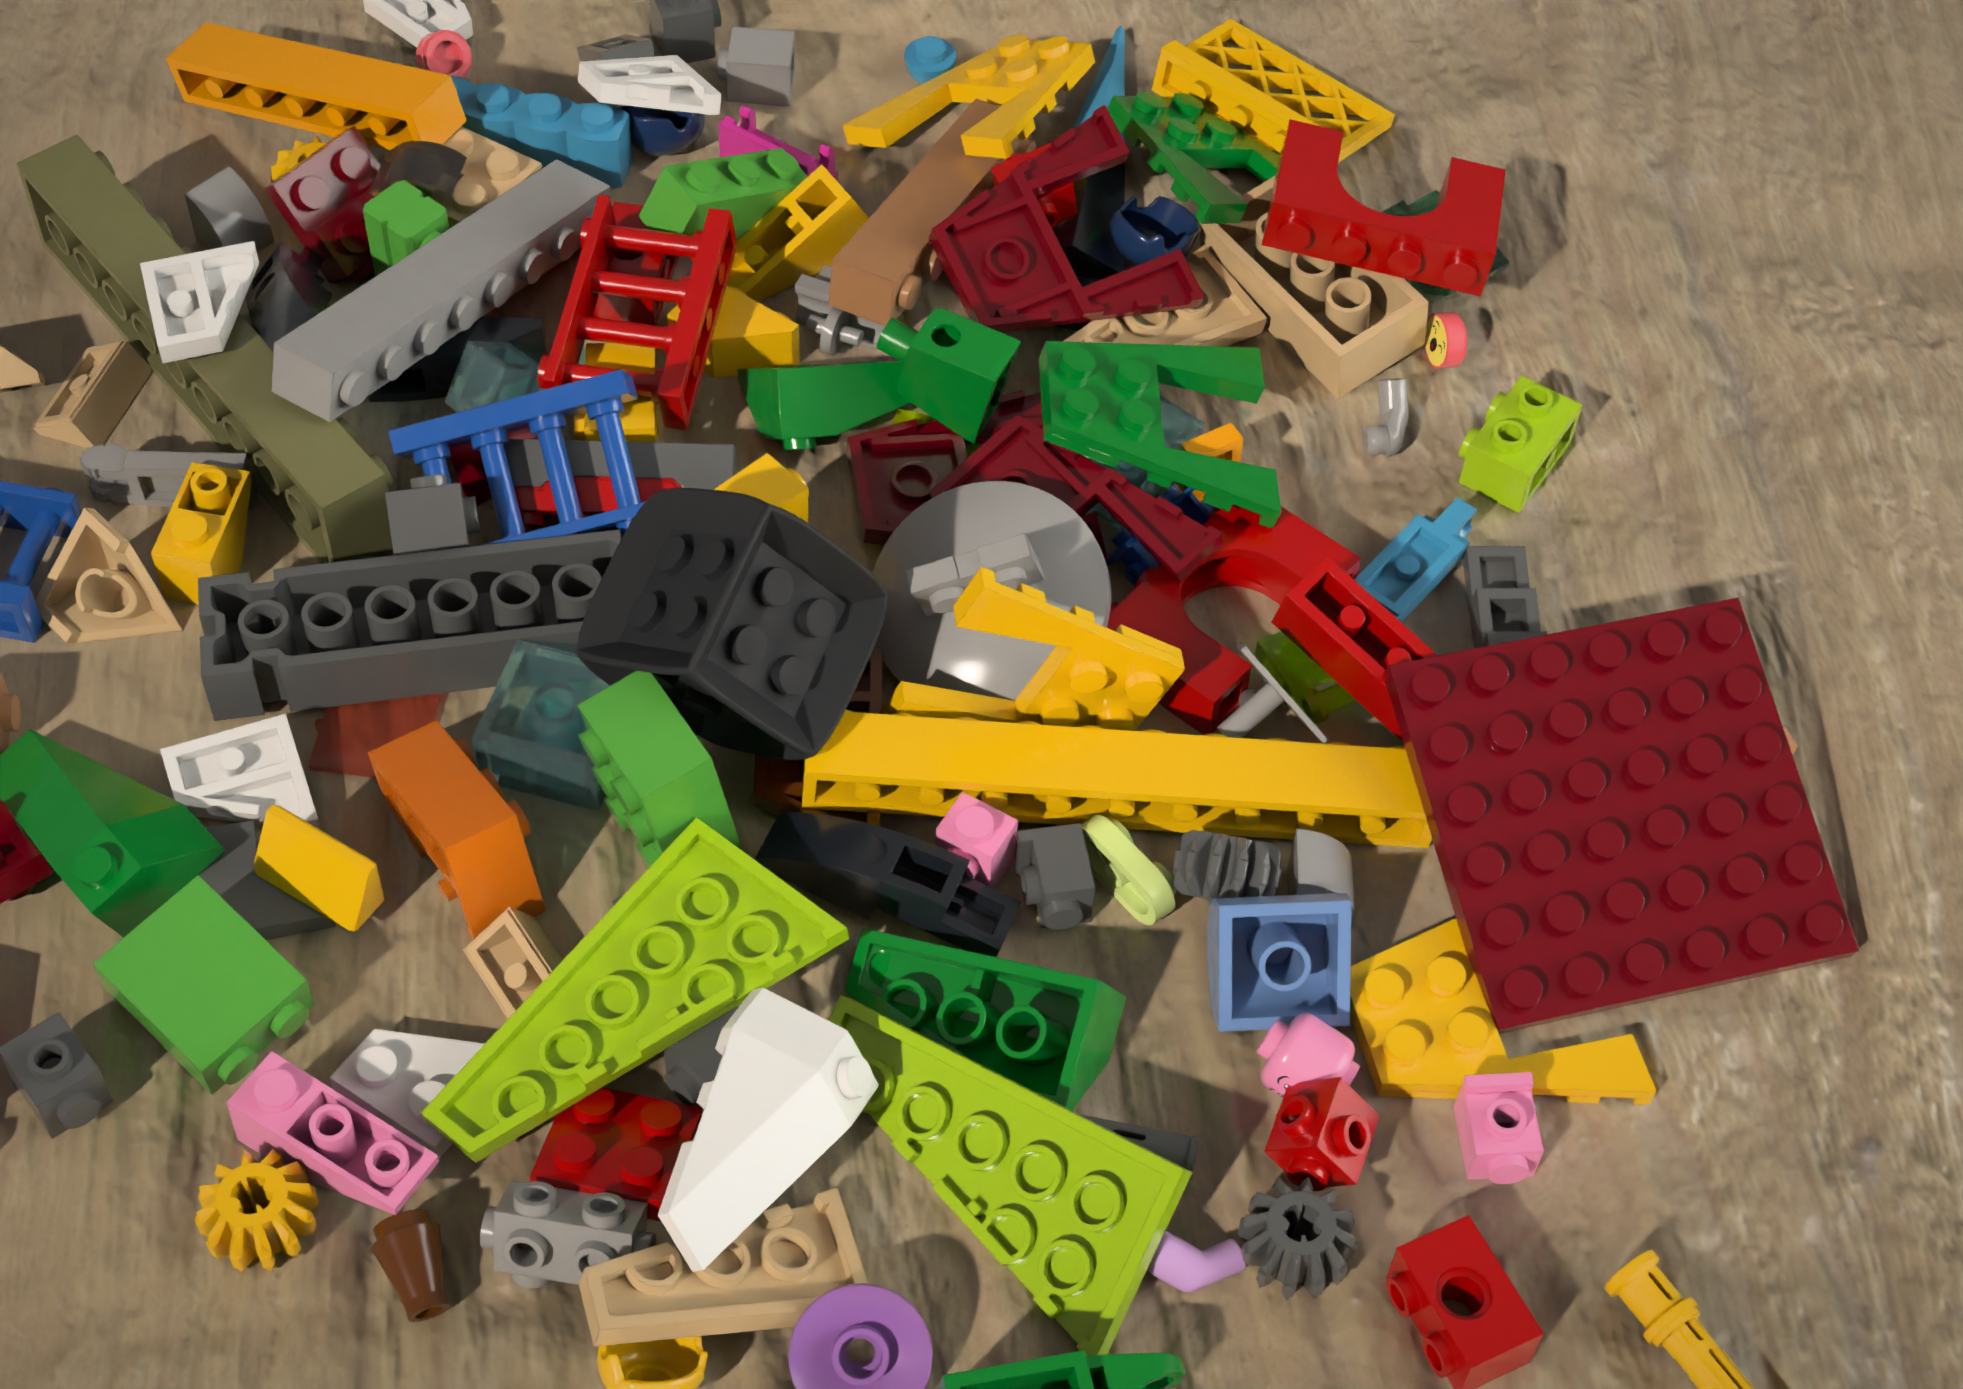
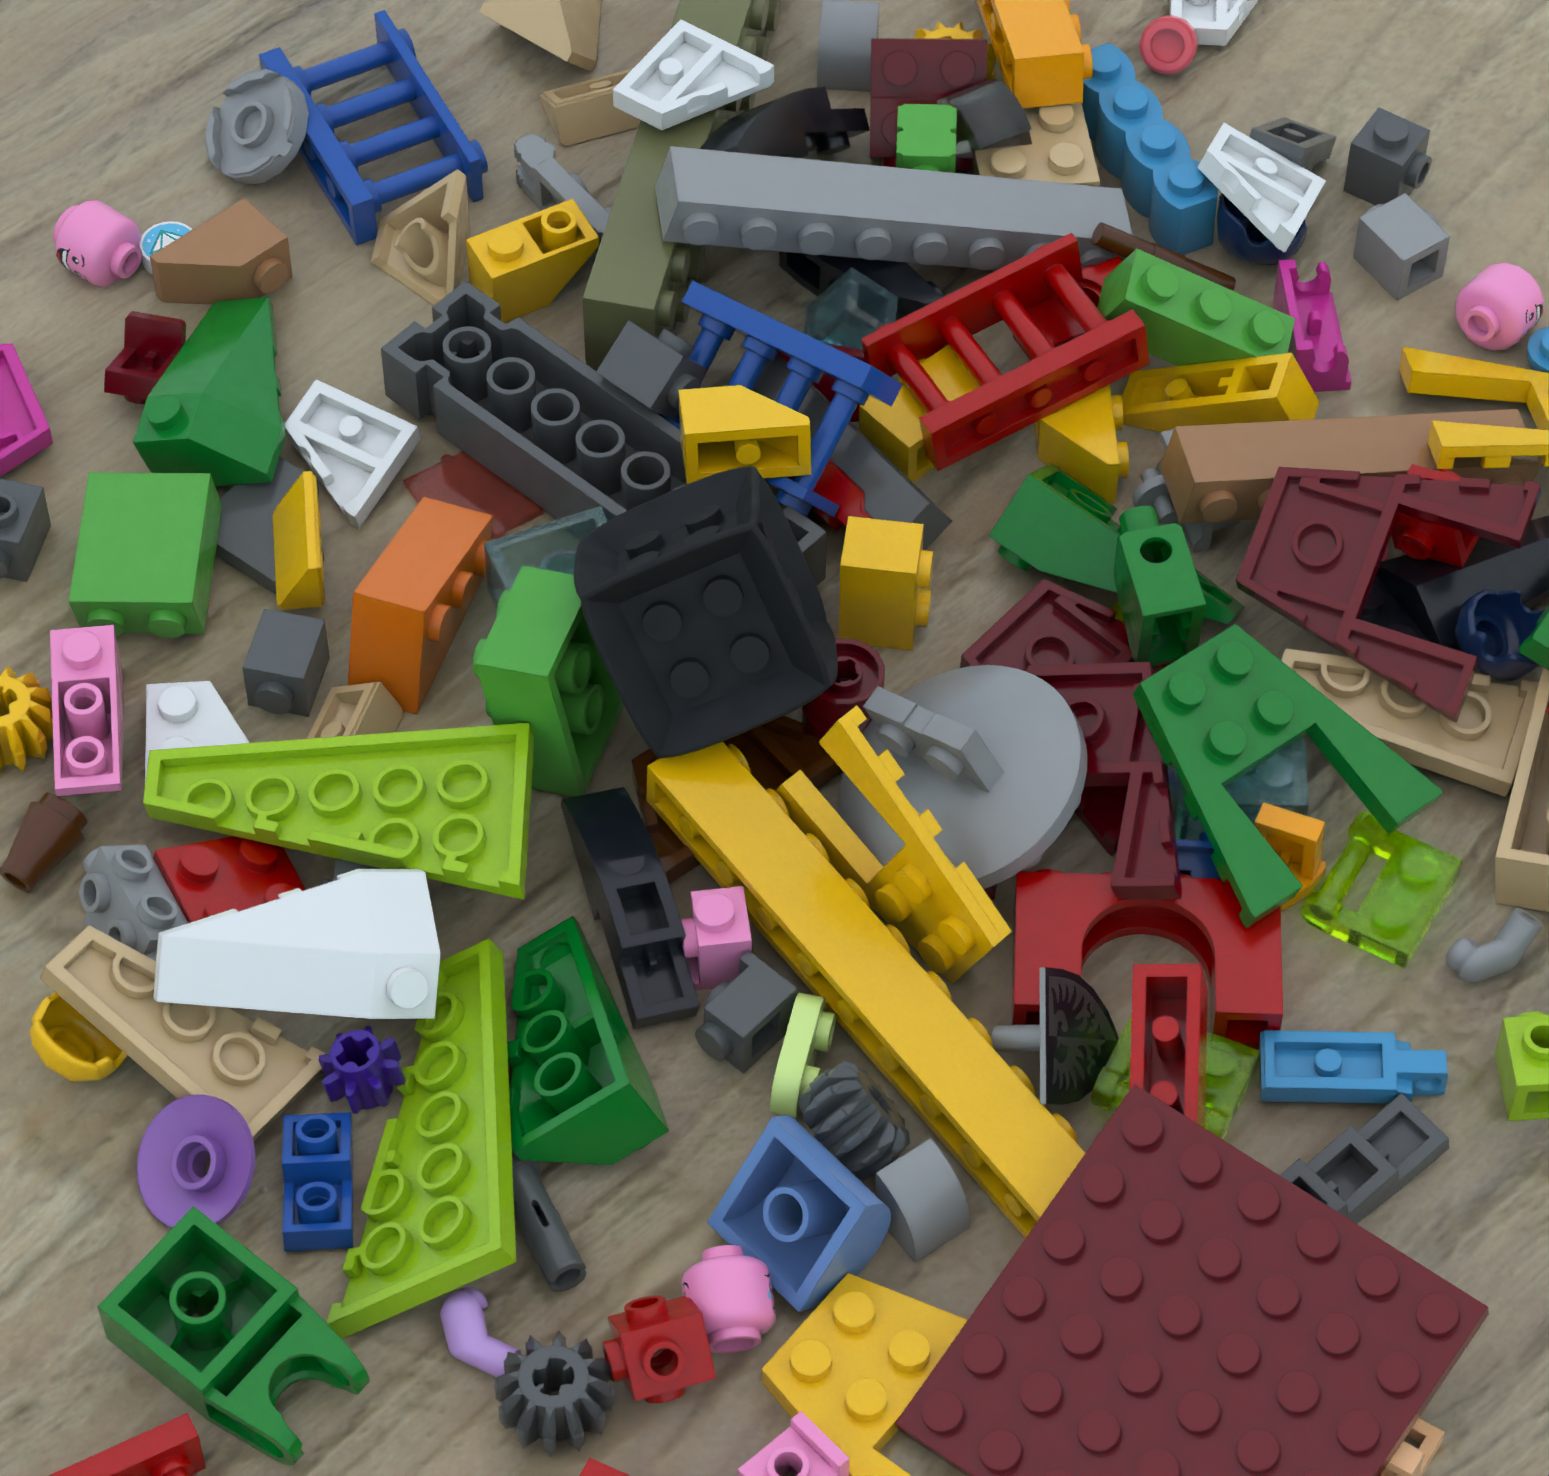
camera: 55 degrees right, 0 degrees up
(417, 961) = (286, 663): none -> dark grey brick
(566, 503) = (739, 429): none -> yellow slope
(623, 187) = (1125, 243): none -> reddish brown piece
(860, 1163) = (361, 1069): none -> dark purple gear
(865, 50) = (1503, 303): none -> bright pink head
(943, 1281) = (317, 1181): none -> blue slope
(1293, 438) = (1398, 903): none -> clear neon green plate

